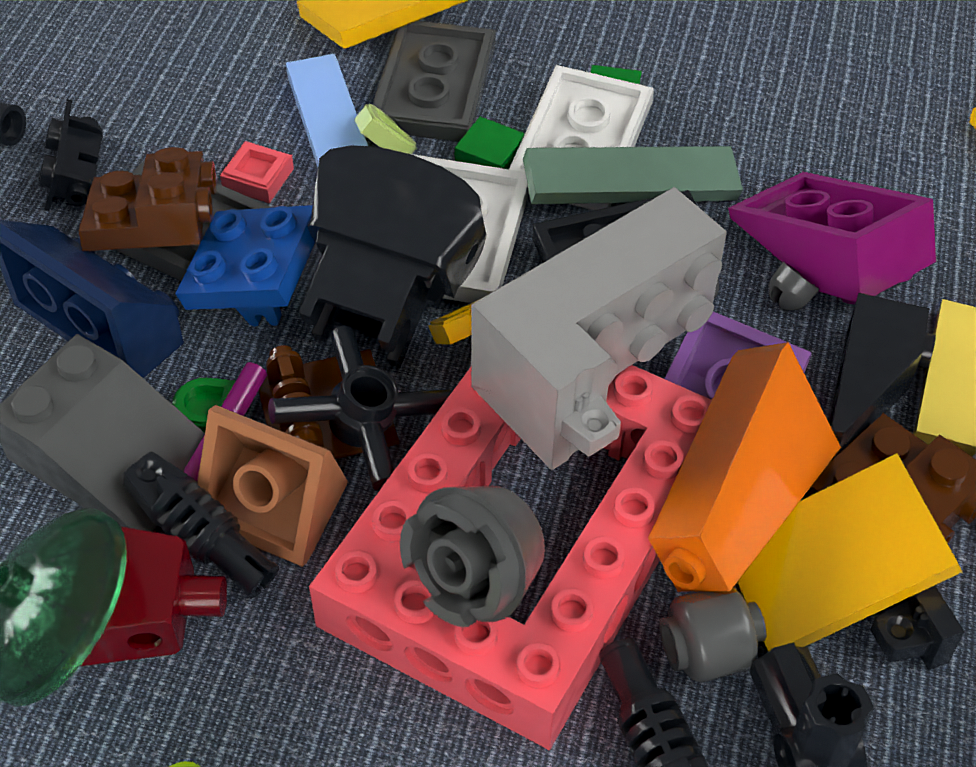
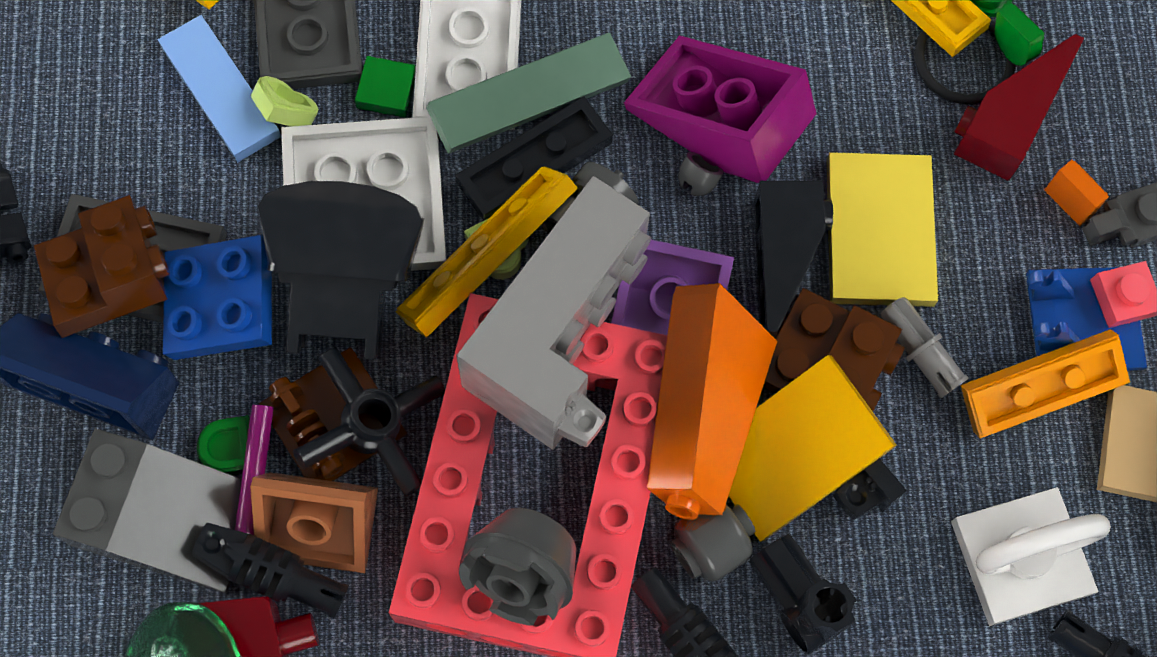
camera: 20 degrees left, 20 degrees up
(257, 171) = (176, 175): coral tile -> none

